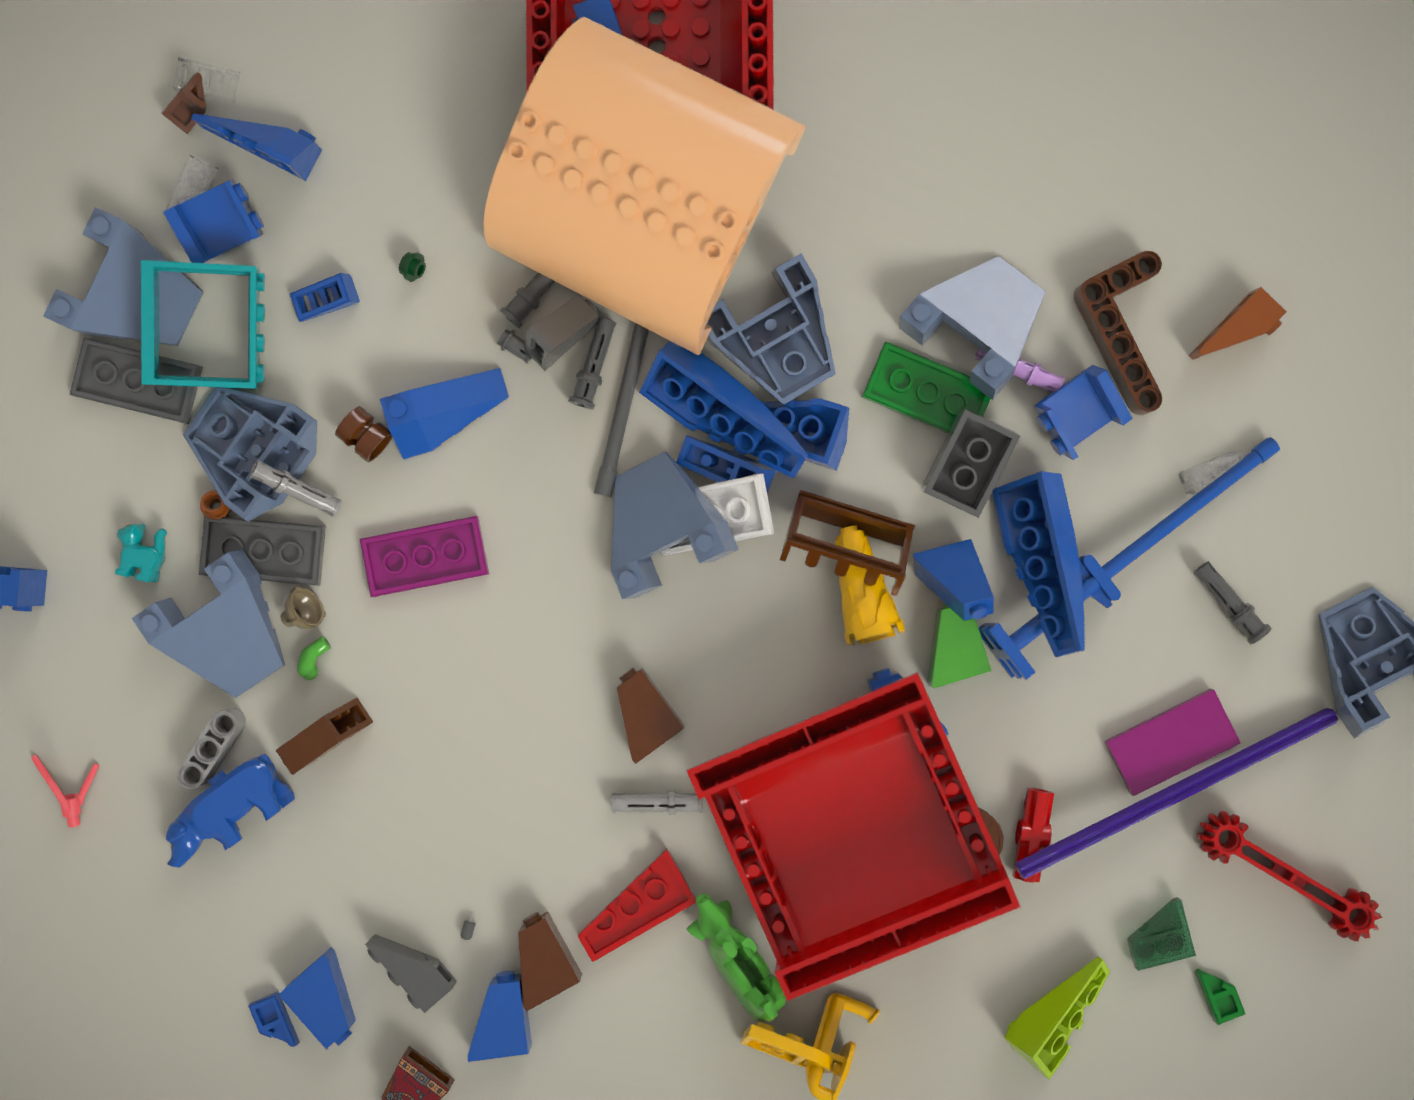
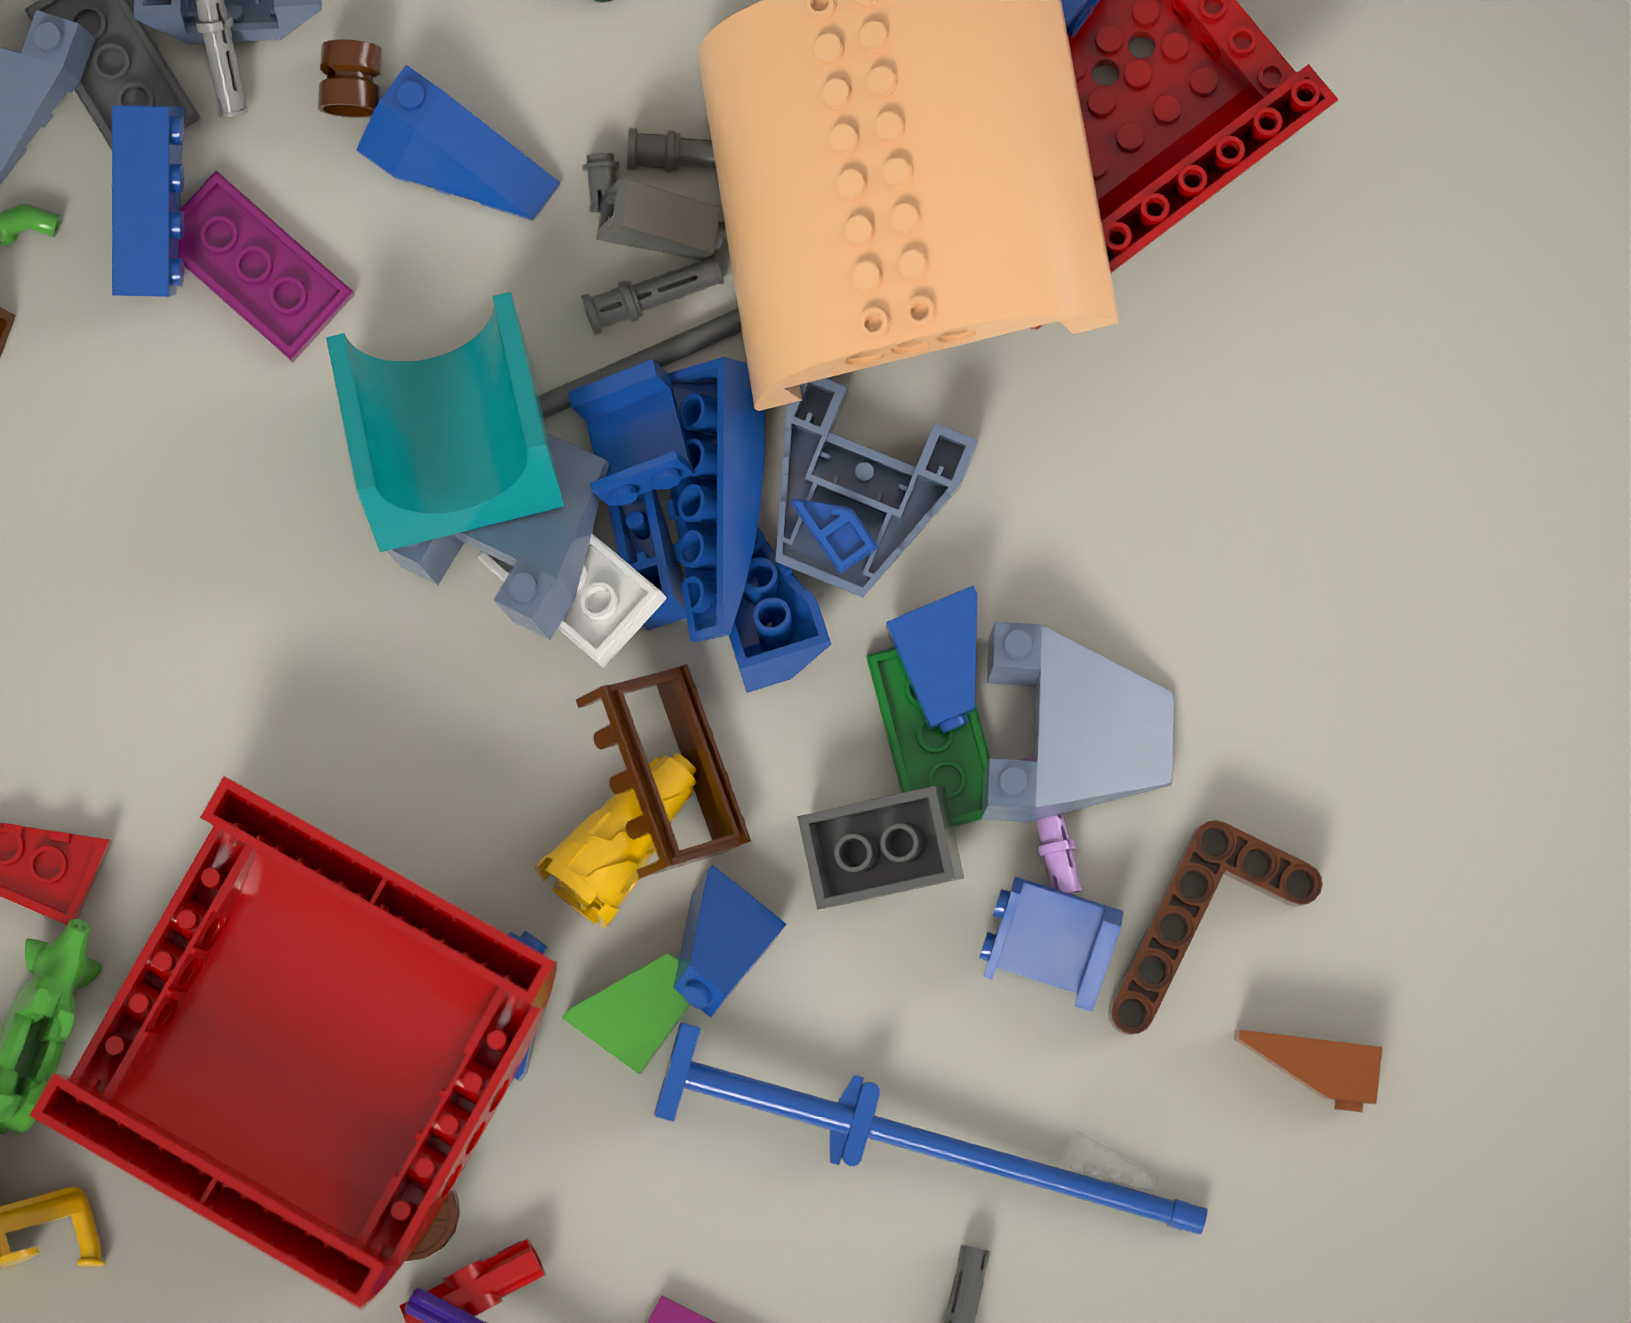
camera: 55 degrees right, 5 degrees down
(302, 609) = (75, 166): dark tan piece -> none
(348, 585) = (147, 200): none -> blue wedge
(592, 521) = (447, 435): none -> teal piece
(645, 714) = (261, 684): reddish brown slope -> none
(656, 803) = (170, 798): light grey pin -> none
(661, 425) = (635, 429): none -> blue panel
(793, 361) = (837, 532): none -> blue tile
(896, 358) = (940, 657): none -> blue slope
(1044, 547) = (847, 1020): blue wedge -> none

